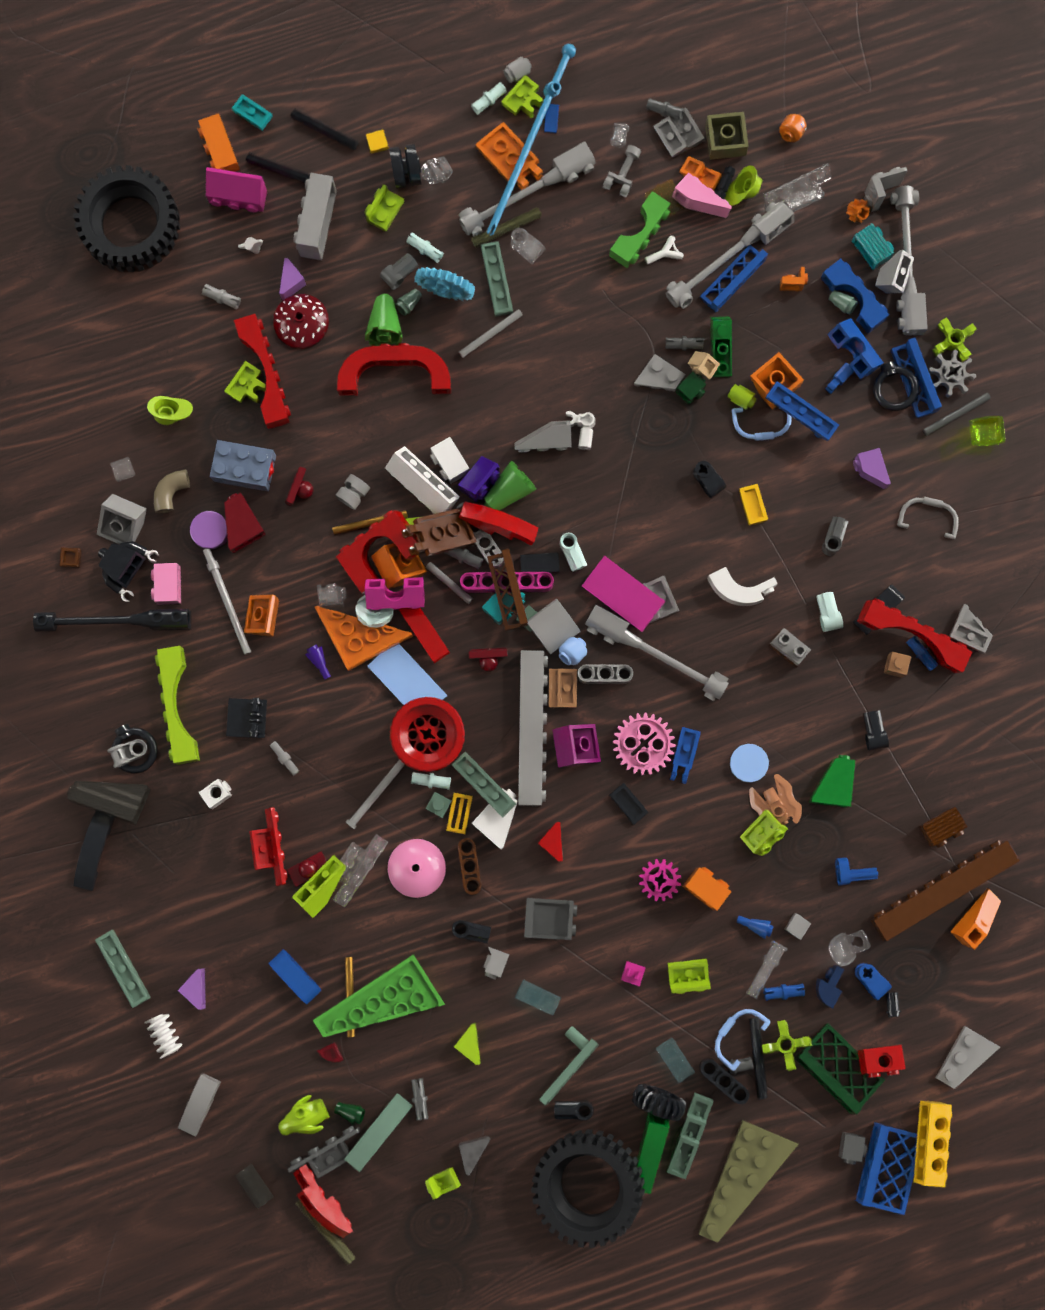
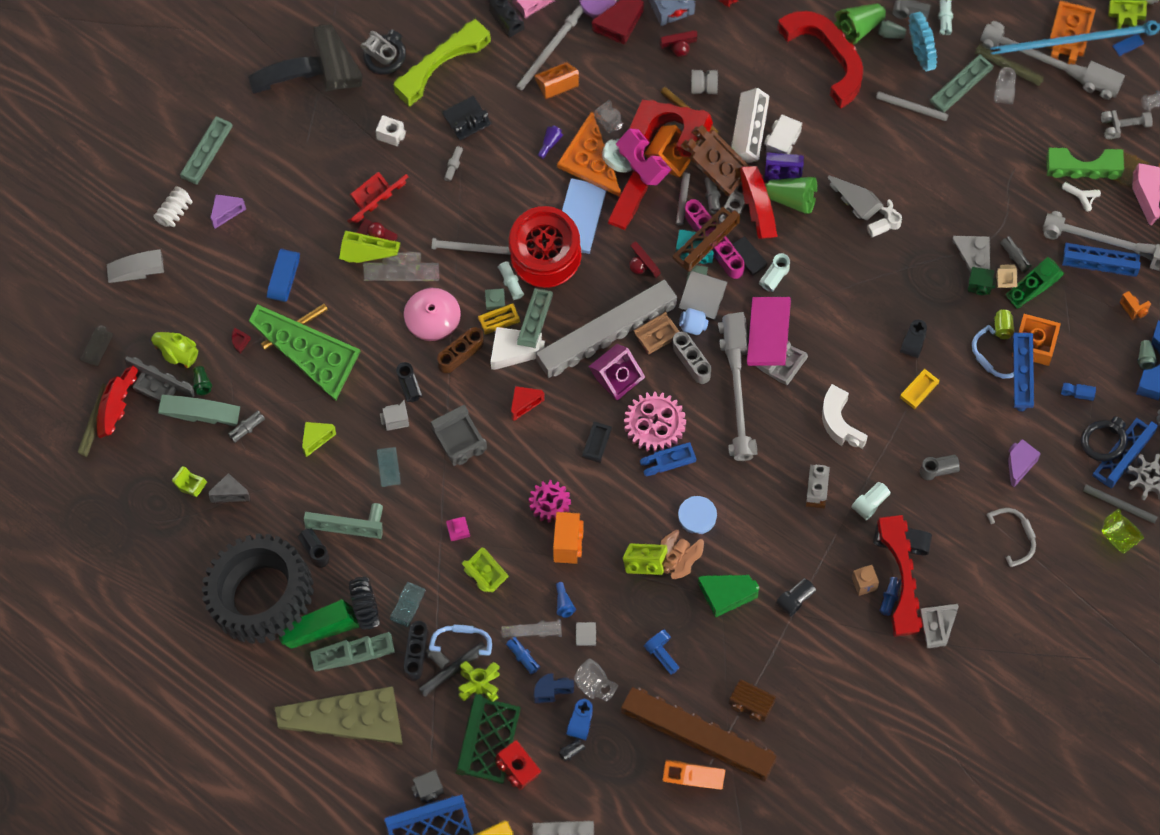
camera: 55 degrees right, 15 degrees down
(850, 337) = (1119, 374): blue arch -> none

